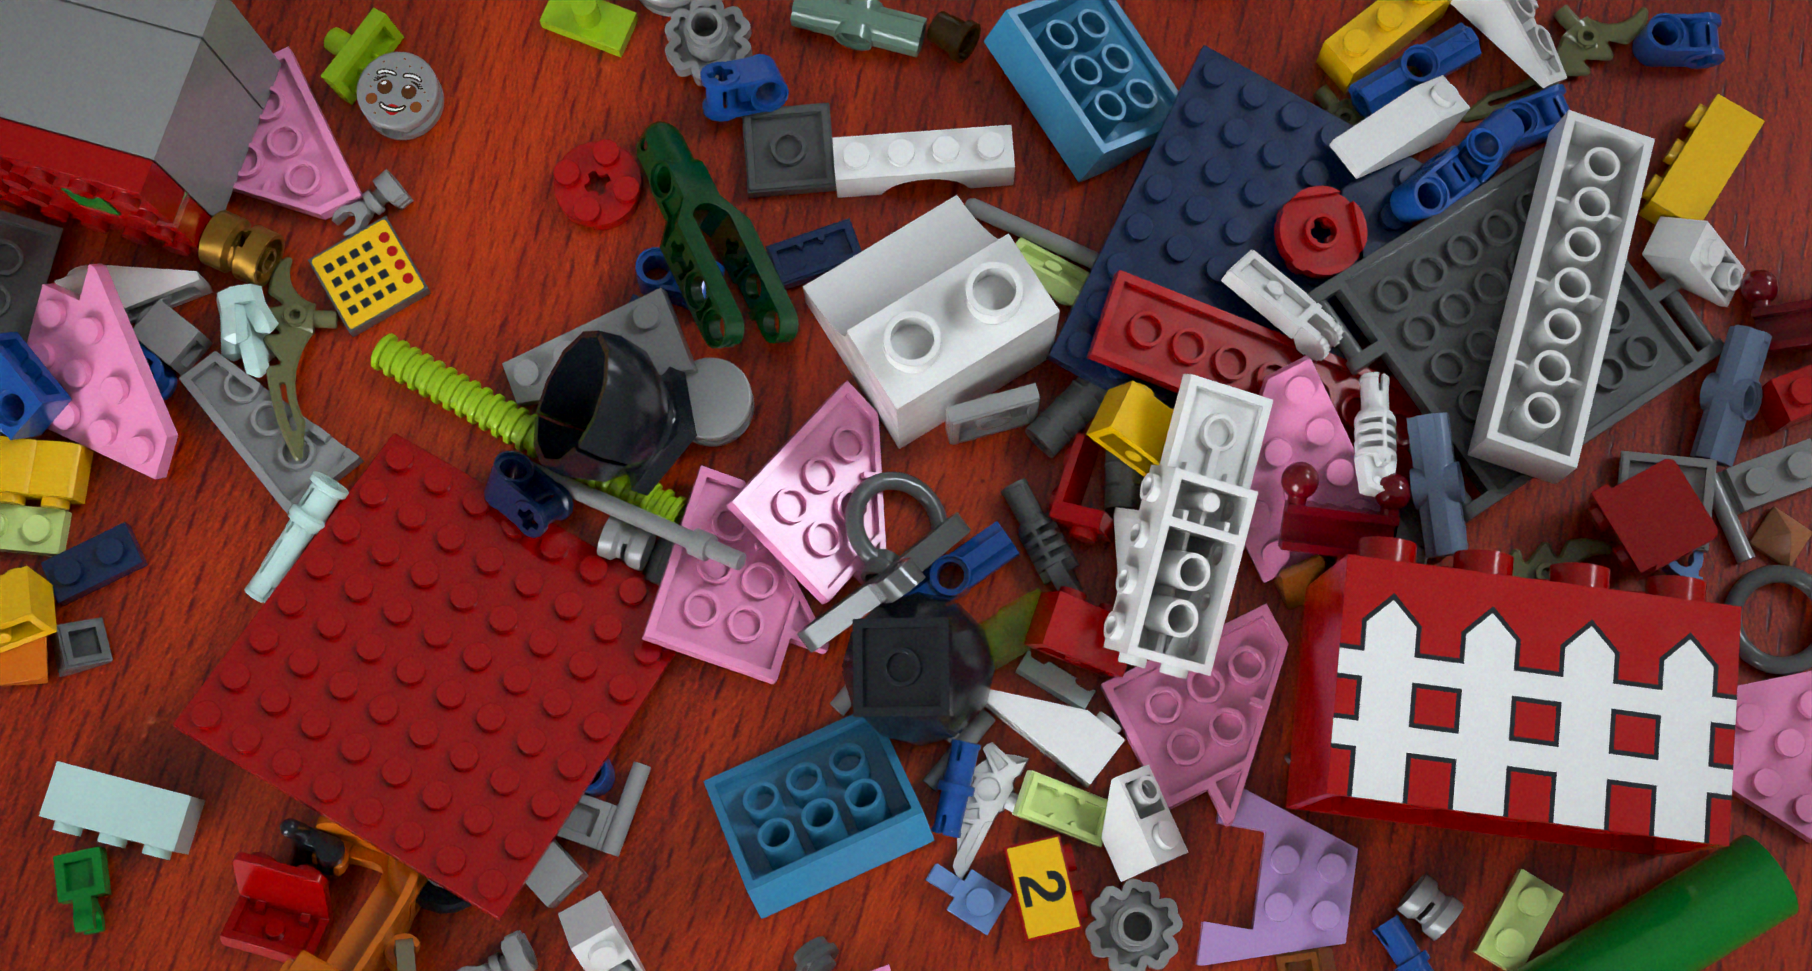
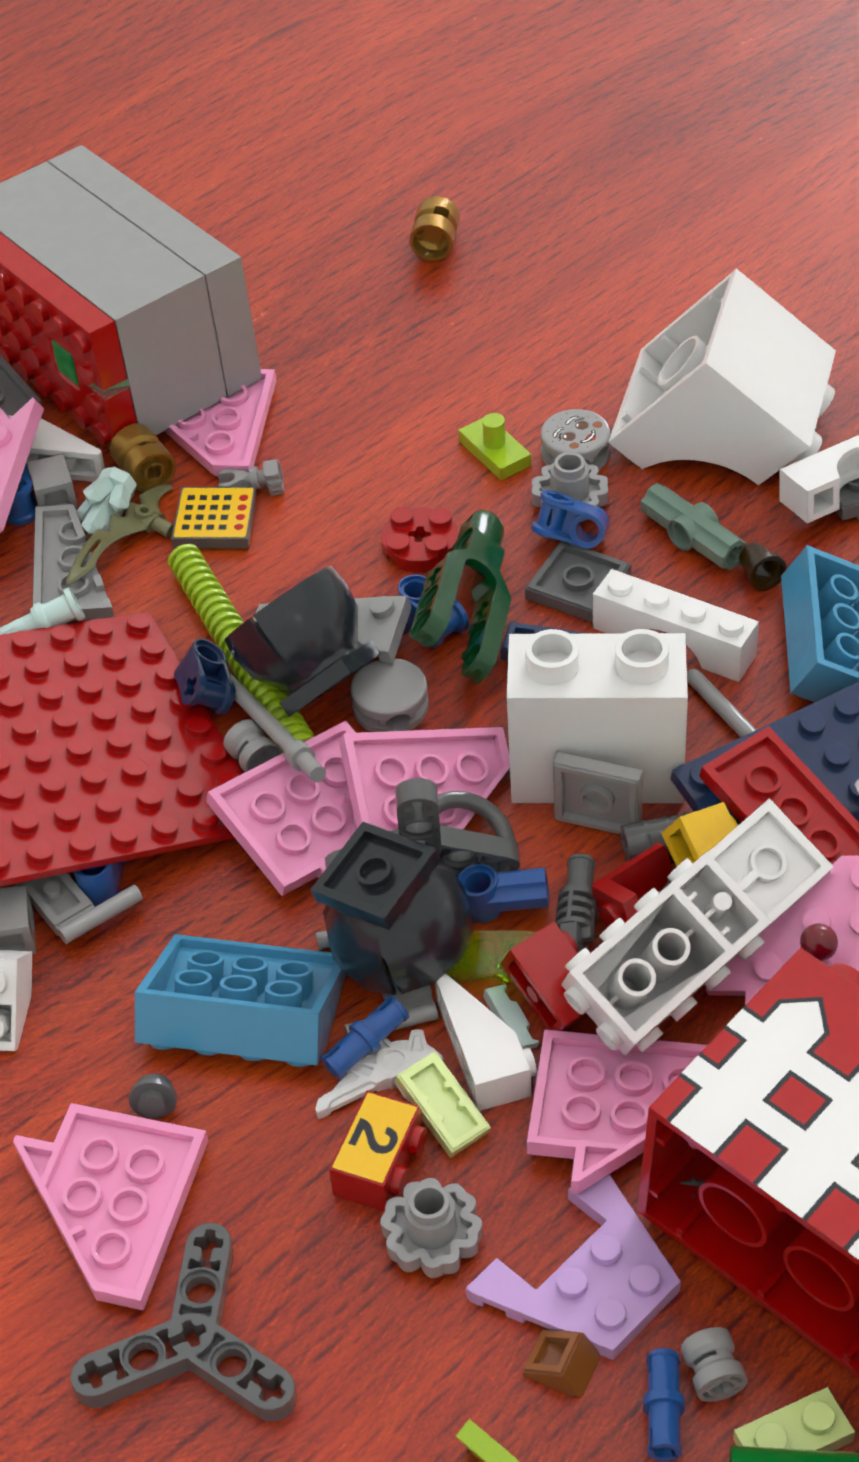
camera: 35 degrees right, 30 degrees down
(354, 52) = (318, 395): lime tile -> none
(400, 95) = (325, 428): light grey head -> none
(974, 899) = (314, 1131): medium blue plate -> none
(1056, 274) = (709, 726): yellowish green plate -> none
(1139, 825) = (494, 1142): white slope -> none

